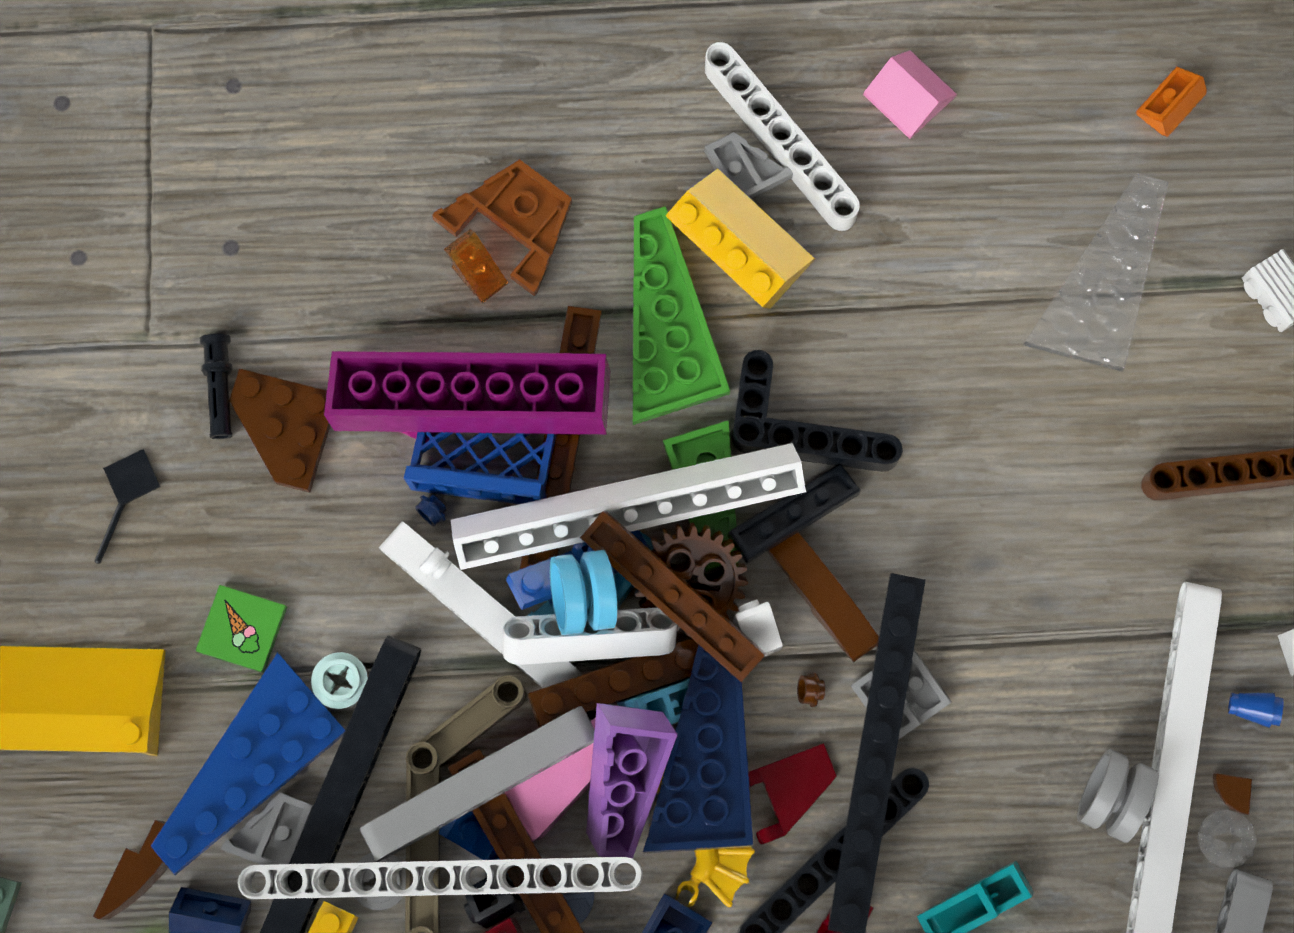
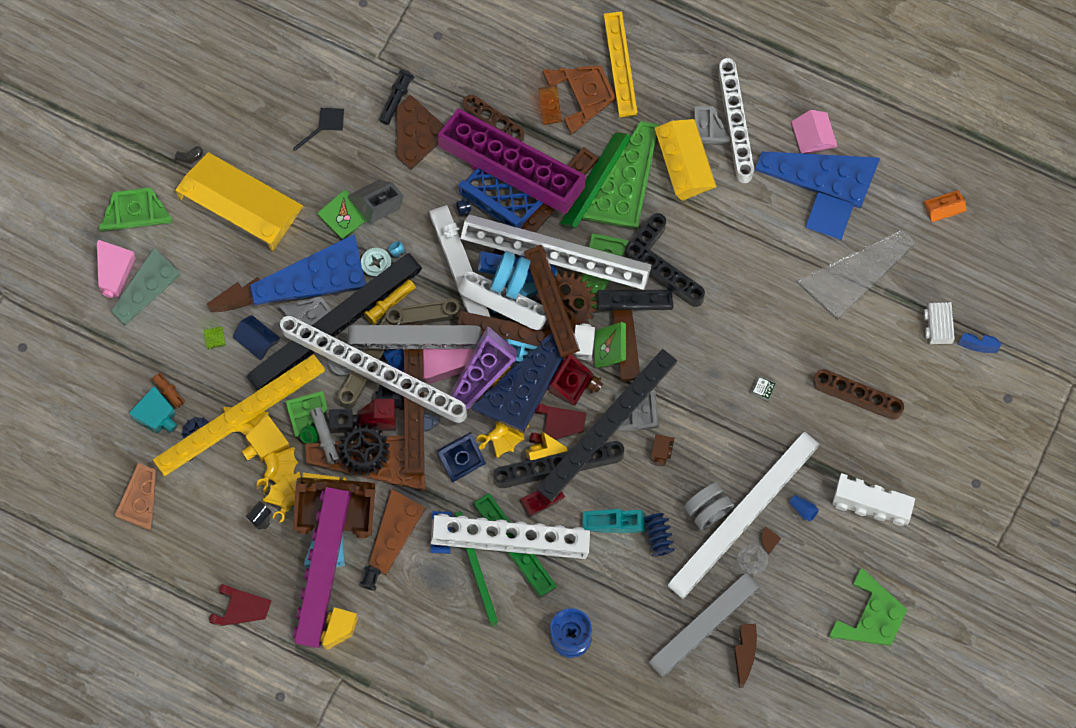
camera: 30 degrees right, 5 degrees down
(282, 576) = (377, 200): none -> dark grey slope
(361, 639) = (396, 248): none -> medium azure hinge
(396, 747) = (394, 298): none -> yellow pin
(398, 334) = (495, 117): none -> reddish brown beam
(549, 142) = (620, 64): none -> yellow plate
(619, 347) = (596, 180): none -> green tile
(771, 705) = (570, 380): none -> dark red slope
(802, 612) = (610, 345): none -> bright green tile
(803, 841) = (549, 447): none -> yellow slope
(977, 146) = (832, 175): none -> blue wing
(981, 740) = (661, 449): none -> reddish brown brick
(1012, 210) = (829, 215): none -> blue slope
(1065, 888) = (658, 534): none -> dark blue piece
(1076, 545) = (763, 388): none -> tile

